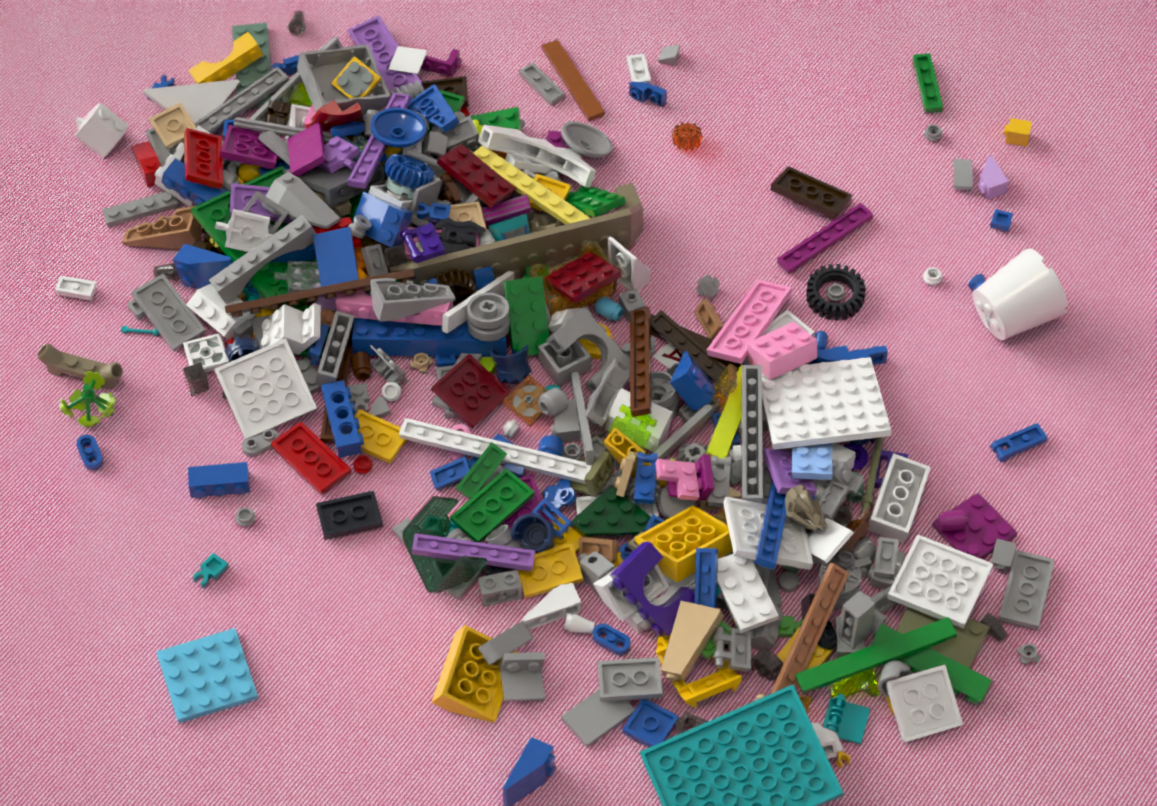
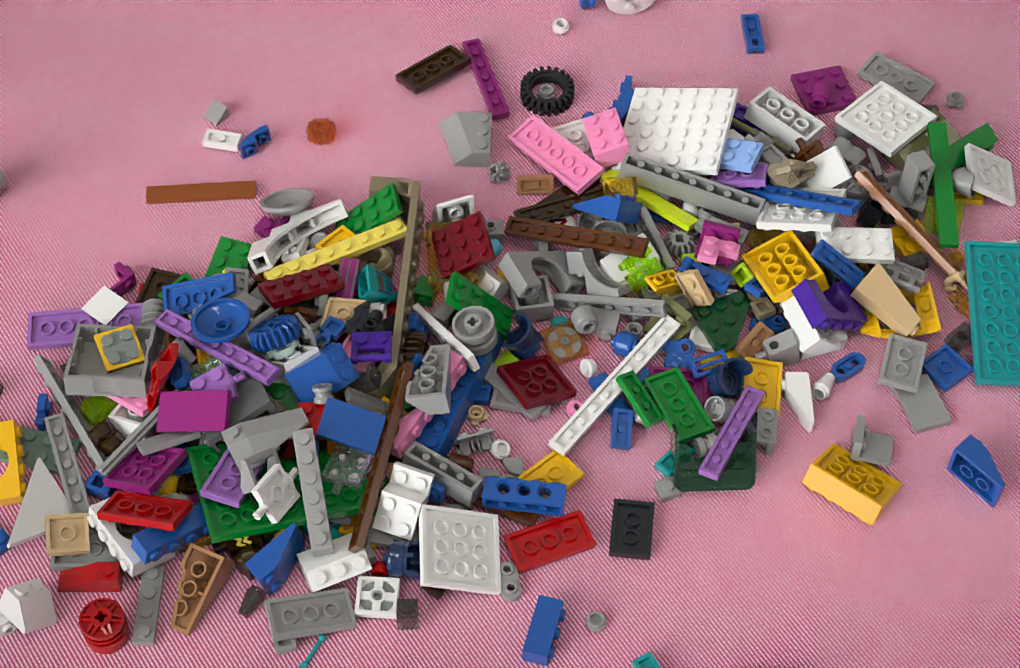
camera: 70 degrees left, 0 degrees up
(104, 184) = (108, 635): none -> red wheel
(363, 464) = (575, 500): red plate -> none
(505, 642) = (833, 442): light grey beam -> none
(542, 84) = (191, 217): light grey tile -> none
(668, 510) = (742, 274): none -> lime slope
(740, 253) = (468, 138): none -> light grey wedge
(846, 719) = (981, 230): teal hinge -> none
(886, 557) = (846, 146): light grey plate -> none
(1003, 554) = (860, 78): light grey brick -> none

